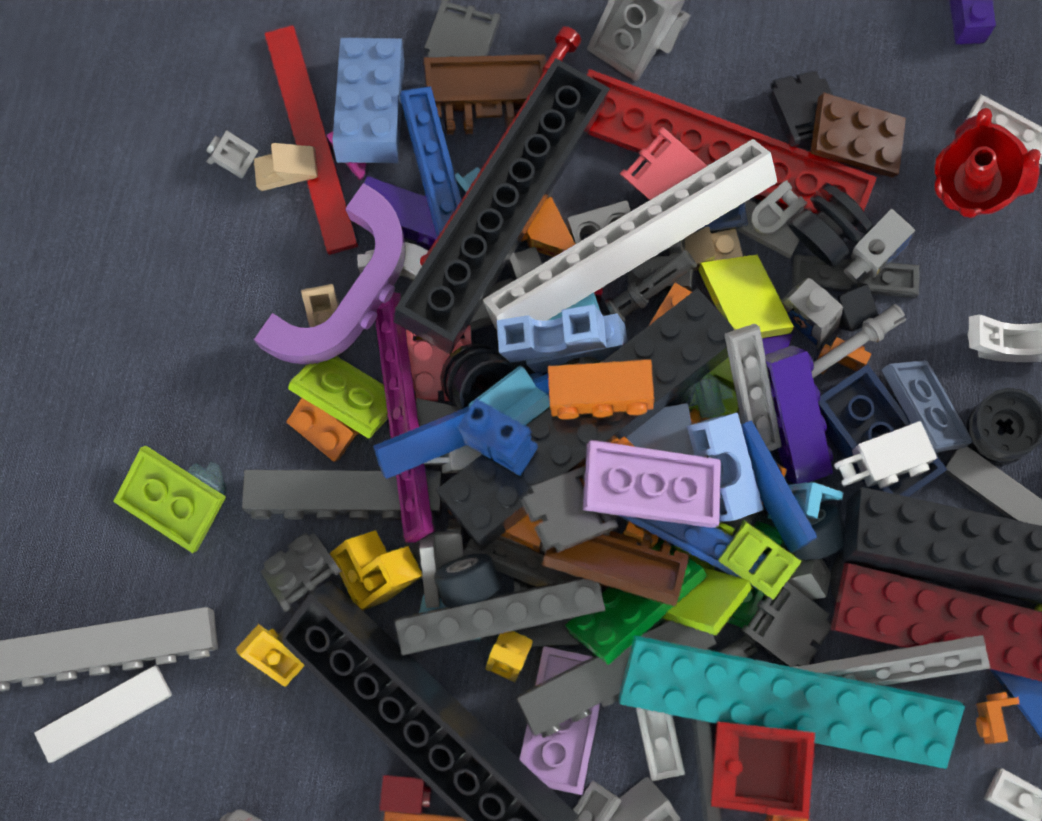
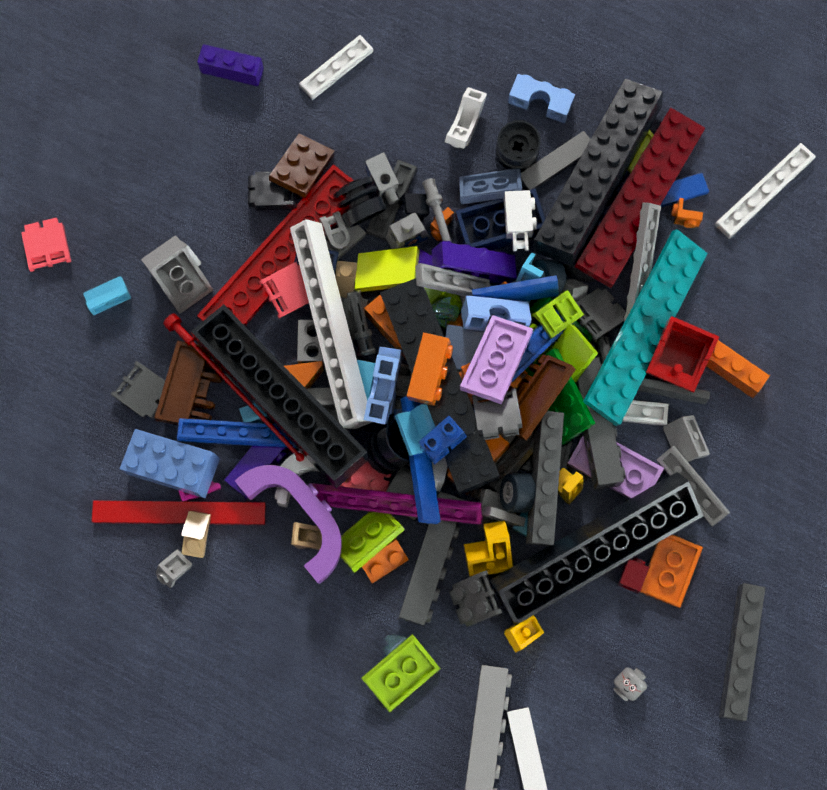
camera: 70 degrees left, 0 degrees up
(984, 168) = (352, 99): red piece -> none

